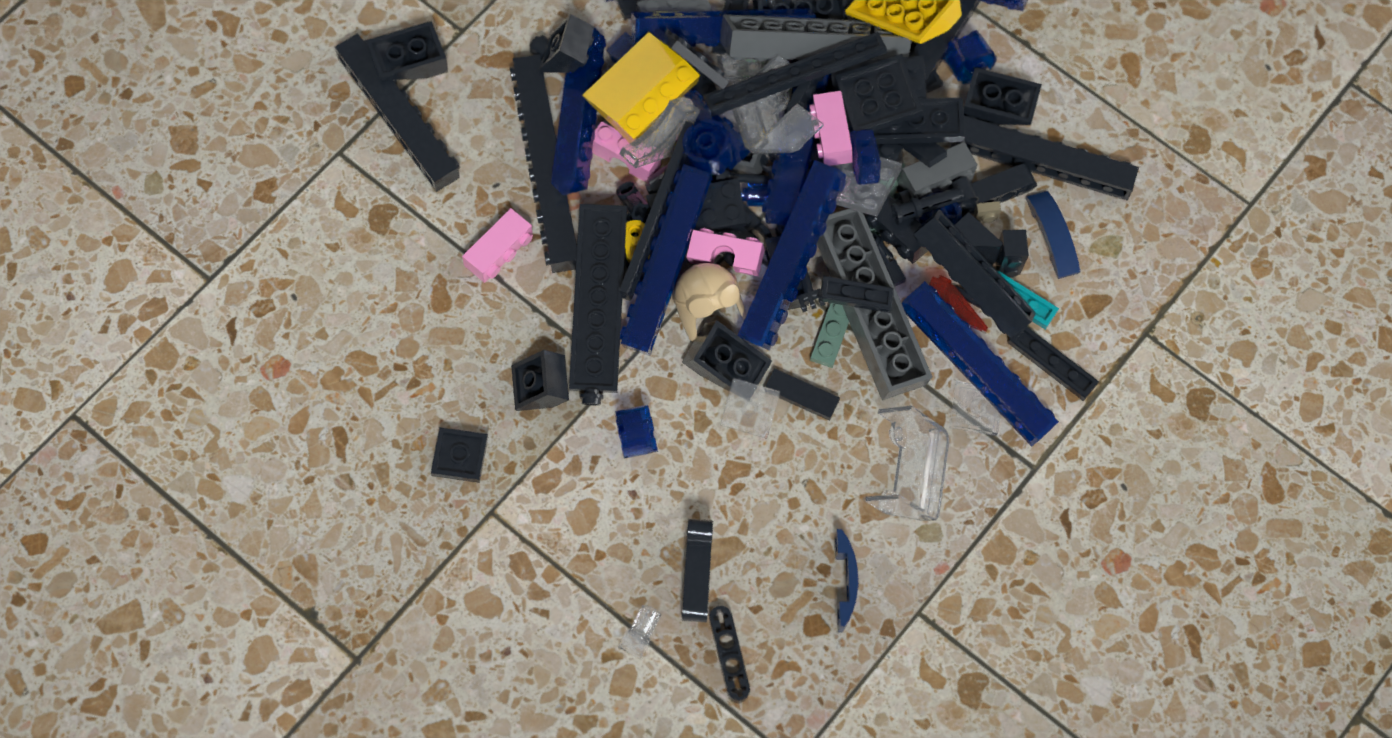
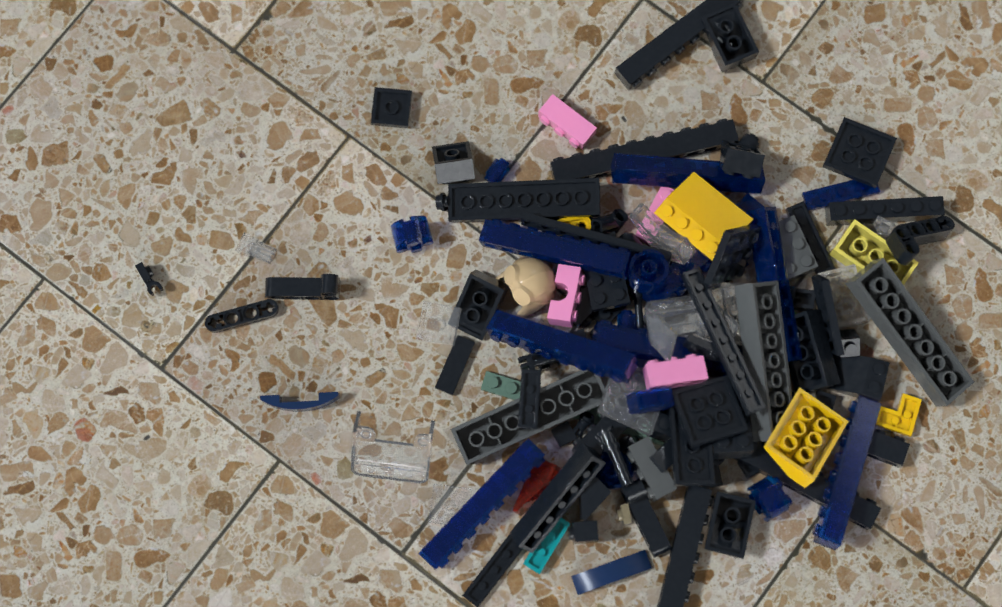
camera: 90 degrees right, 10 degrees up
(556, 330) = (497, 171): none -> clear blue brick

